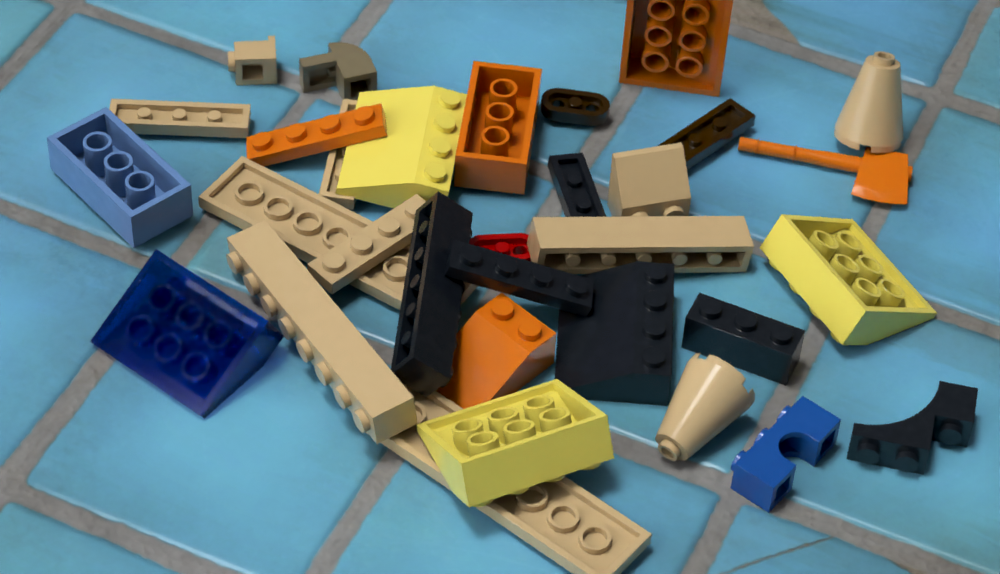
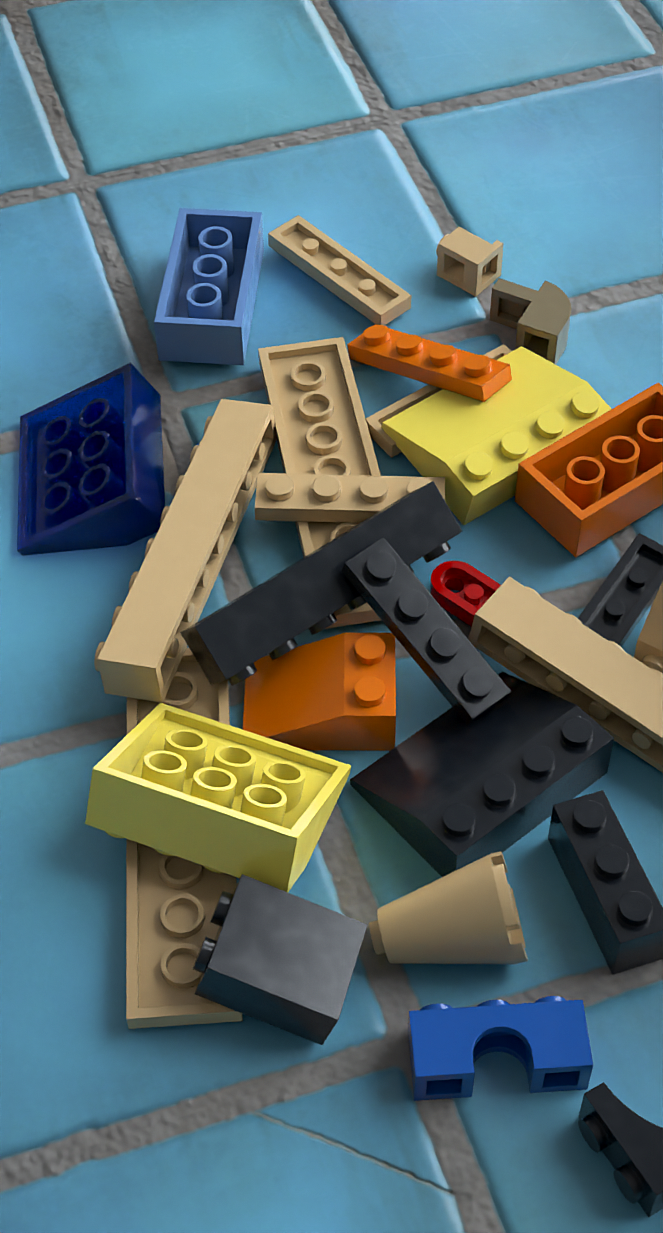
camera: 50 degrees right, 5 degrees up
(645, 491) = (279, 959): none -> black brick

